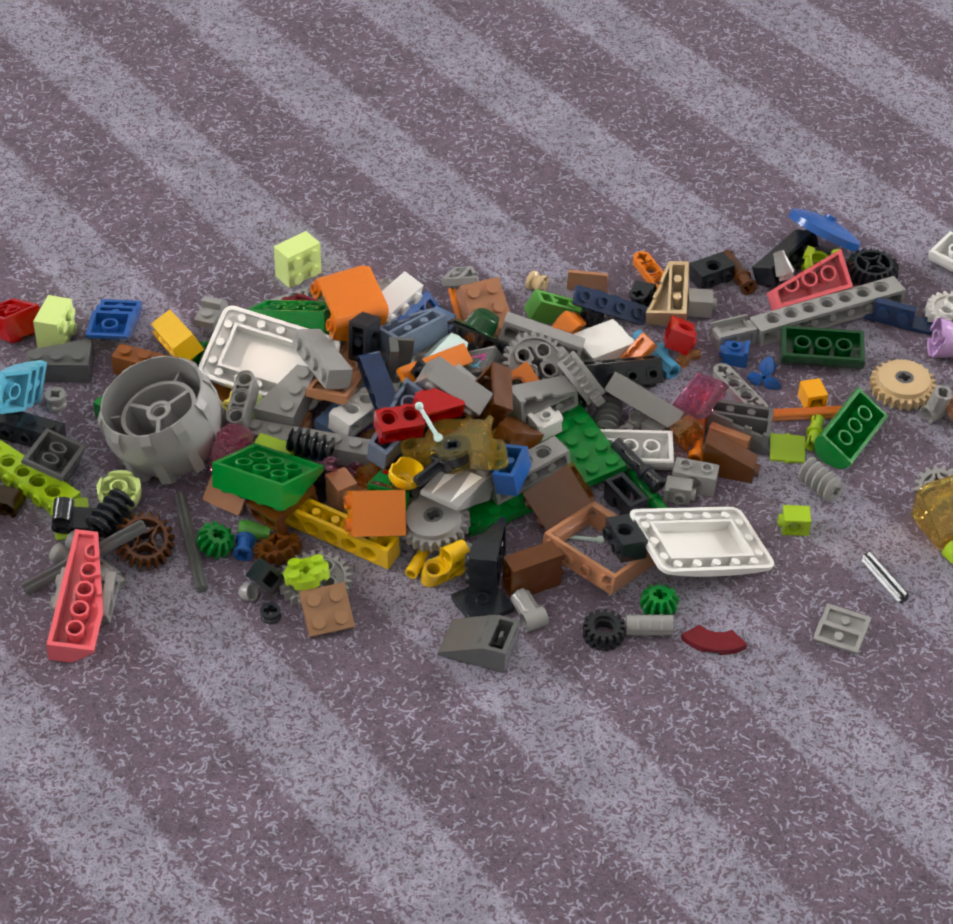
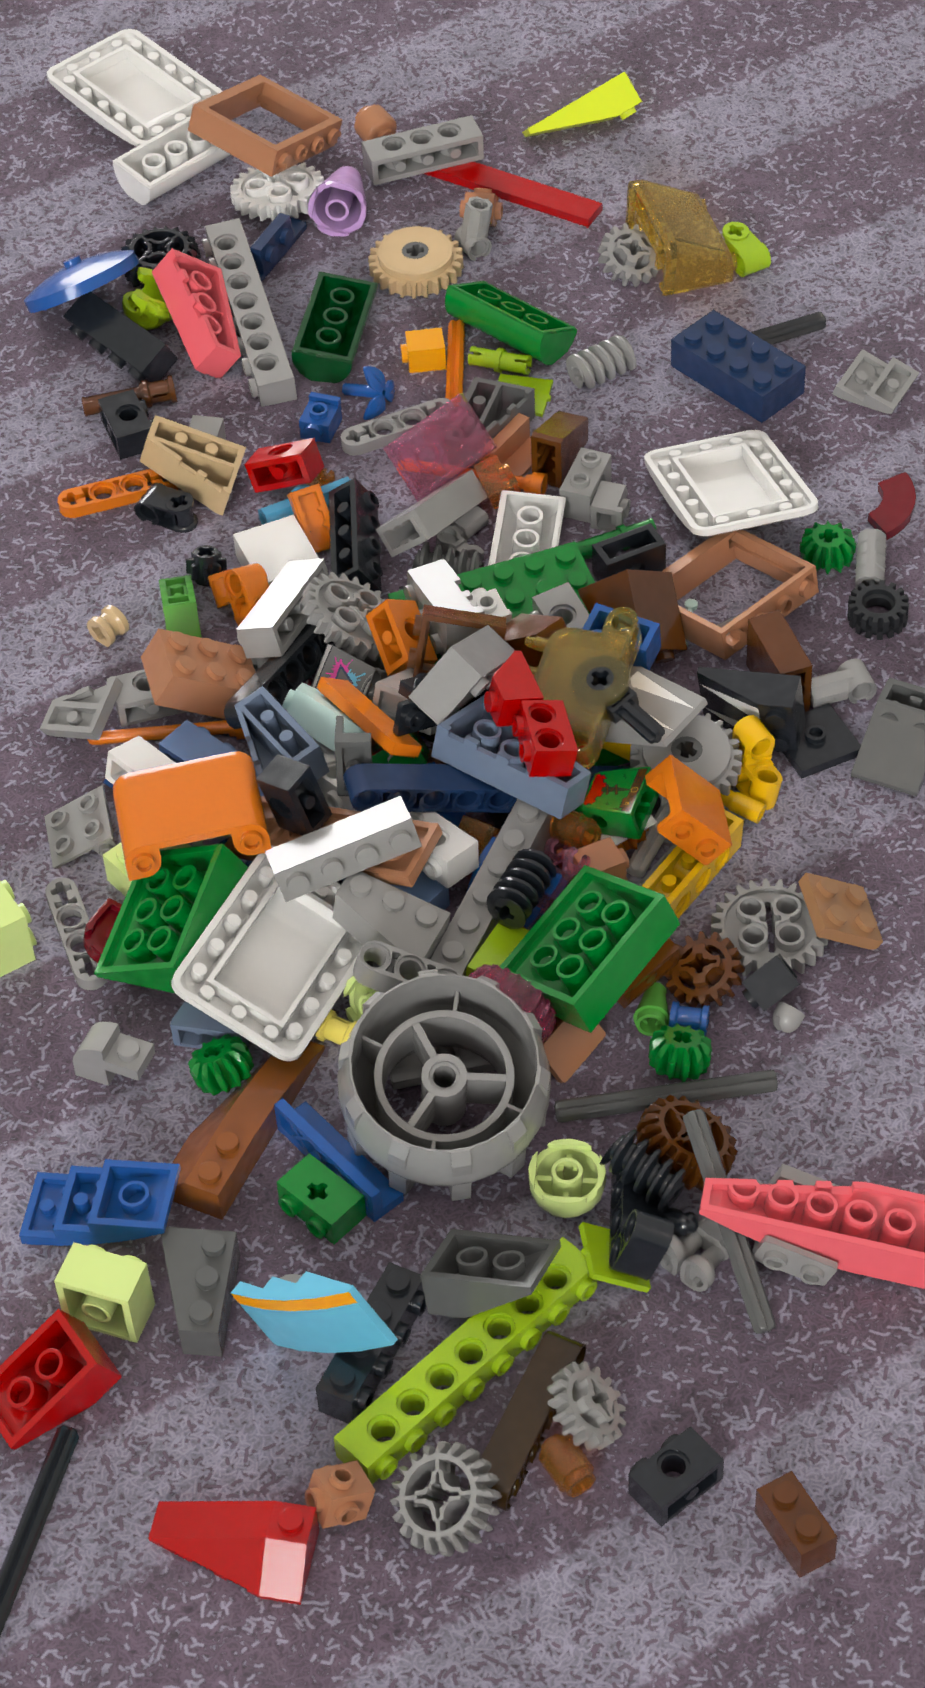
camera: 80 degrees left, 5 degrees up
(176, 336) = (186, 1093): yellow brick -> none
(266, 608) = (821, 993): black bush -> none
(306, 572) = (781, 899): lime plate -> none
(403, 471) = (624, 757): yellow hair -> none
(437, 436) = (582, 693): light aqua hinge -> none
(482, 321) = (258, 662): dark green piece -> none
(581, 377) = (390, 558): light grey gear -> none
(587, 279) = (114, 568): nougat panel -> none
(609, 305) = (198, 536): dark blue bracket -> none
(625, 538) = (740, 546): black brick -> none
(645, 473) = (585, 526): black pin -> none
(732, 329) = (274, 415): light grey hinge -> none
(783, 267) = (166, 329): light grey cone -> none
(795, 520) = (678, 396): lime brick -> none
(833, 548) = (738, 366): none -> dark blue brick

